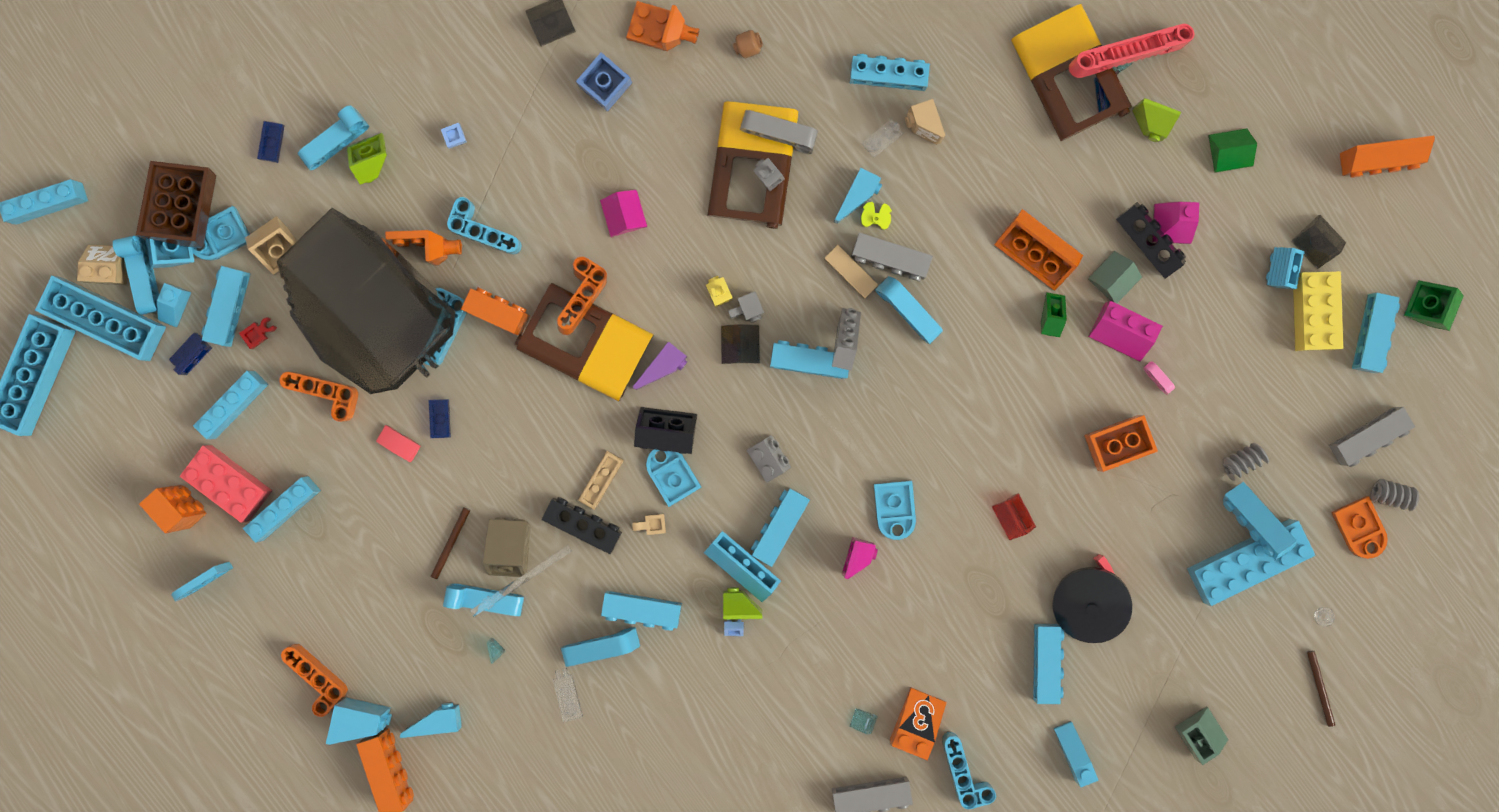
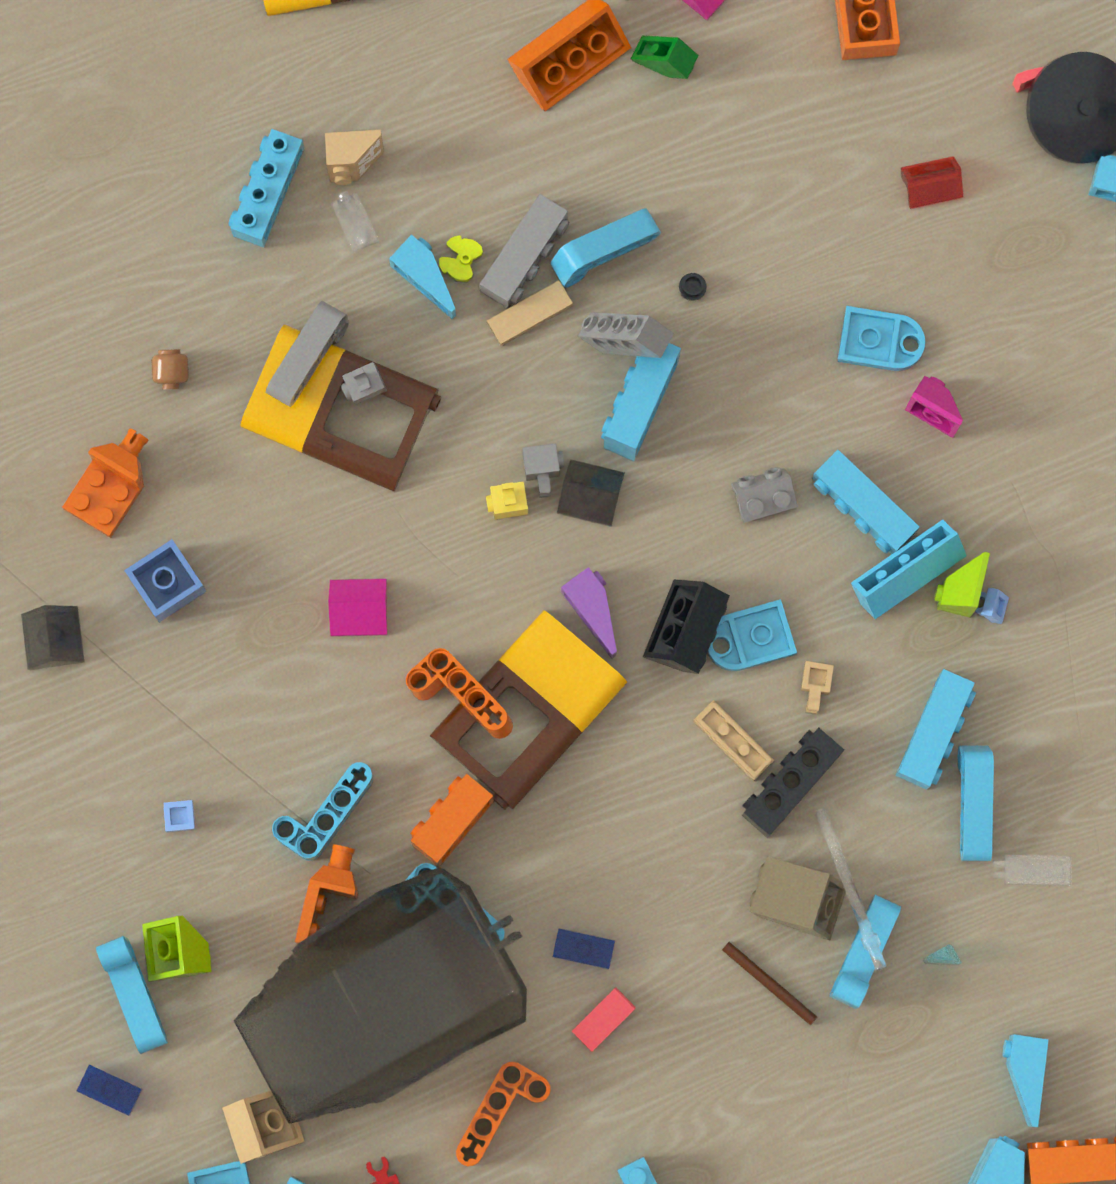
camera: 80 degrees left, 10 degrees down
(898, 375) = (692, 286): none -> black plate

